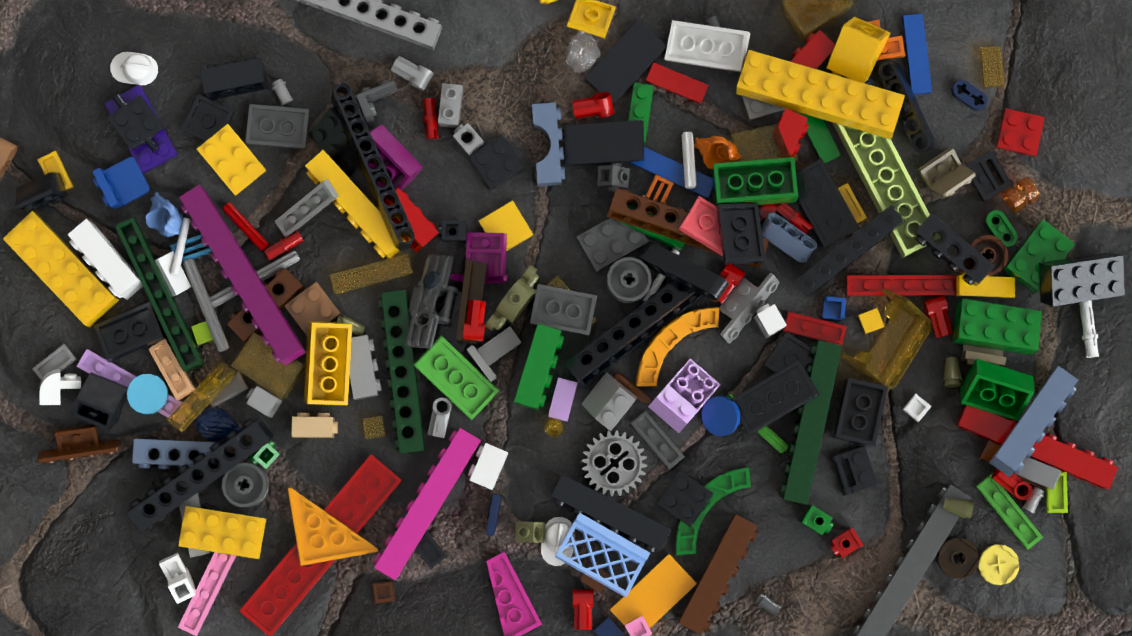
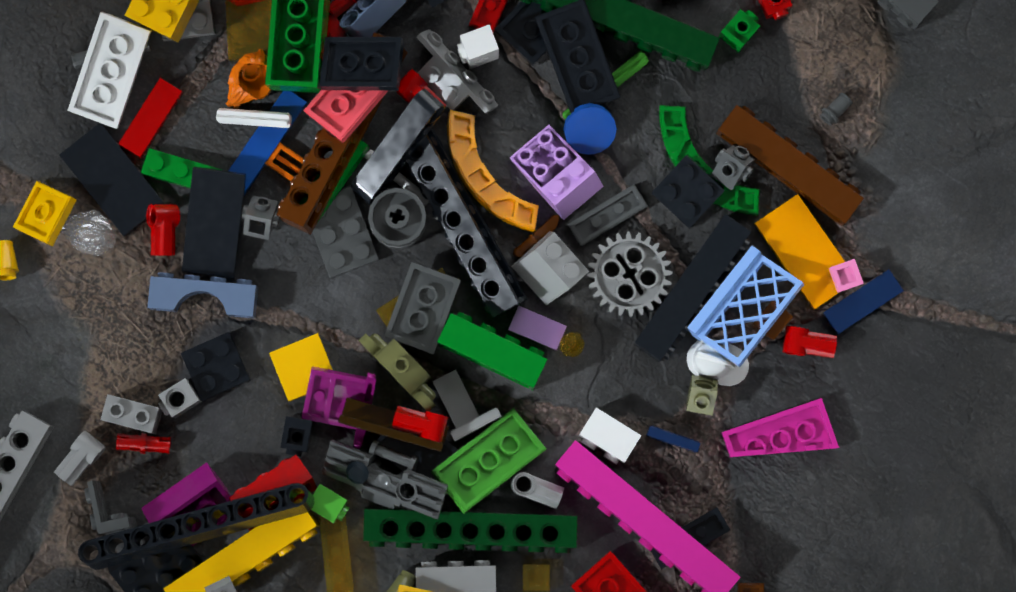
camera: 85 degrees left, 0 degrees up
(404, 263) = (329, 504): none -> bright green brick
(709, 530) = (733, 166): none -> dark grey brick

